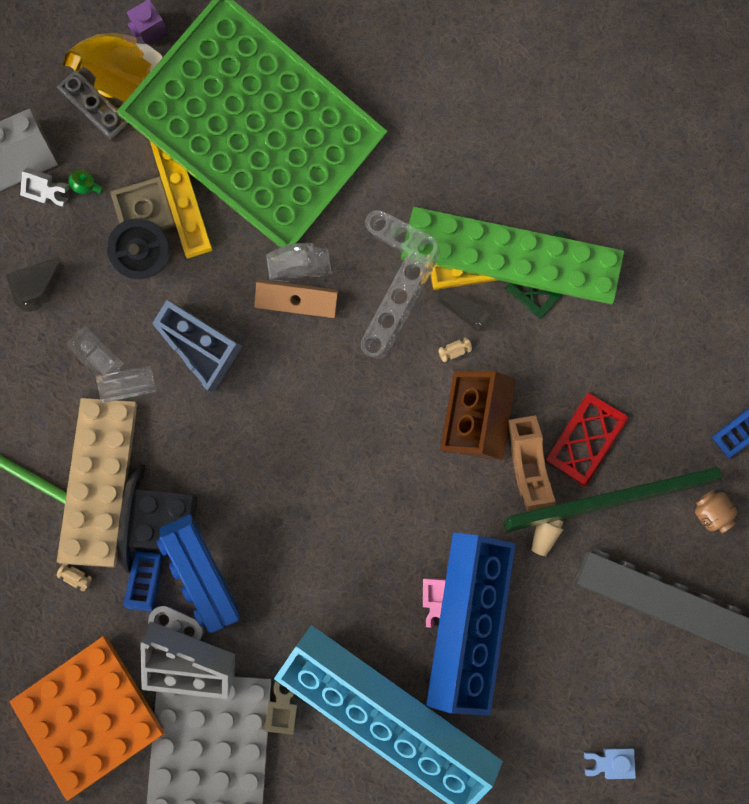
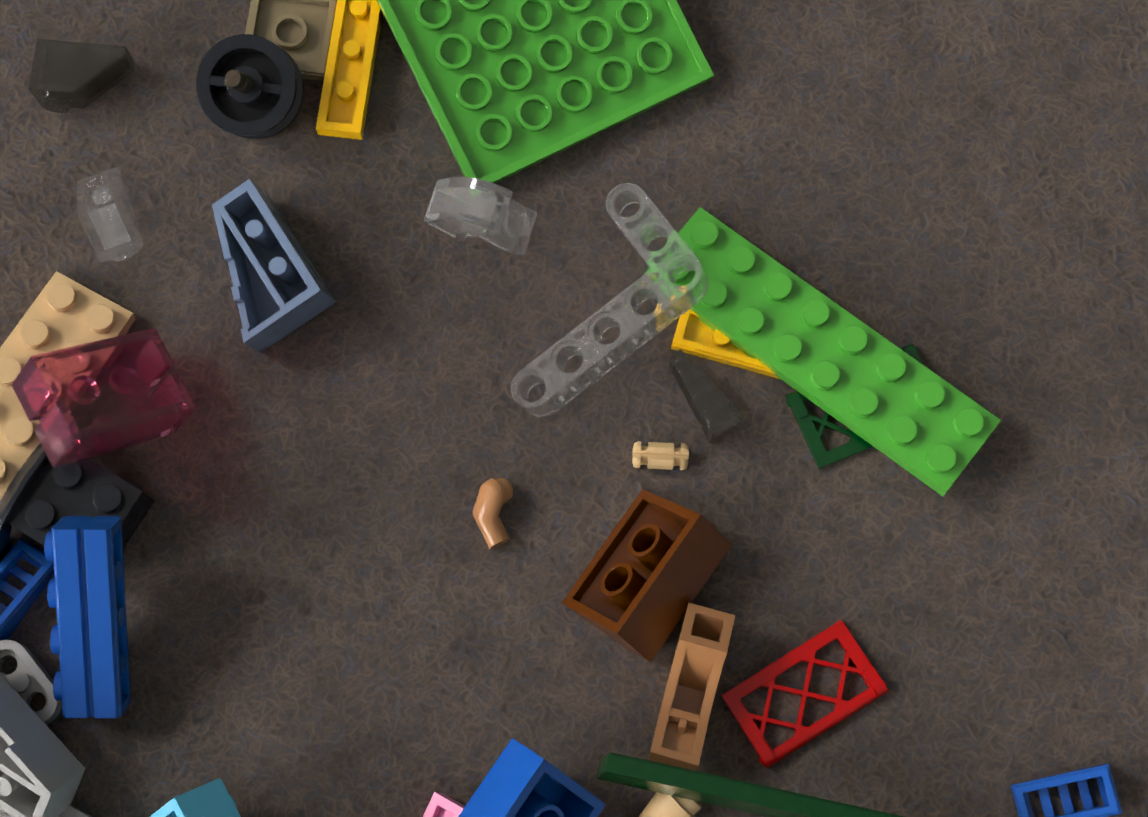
camera: 30 degrees right, 5 degrees down
(126, 384) = (131, 279): clear tile -> none
(142, 457) = (100, 398): none -> clear pink piece
(279, 297) = (428, 255): medium nougat tile -> none
(378, 419) = (487, 509): none -> medium nougat arm

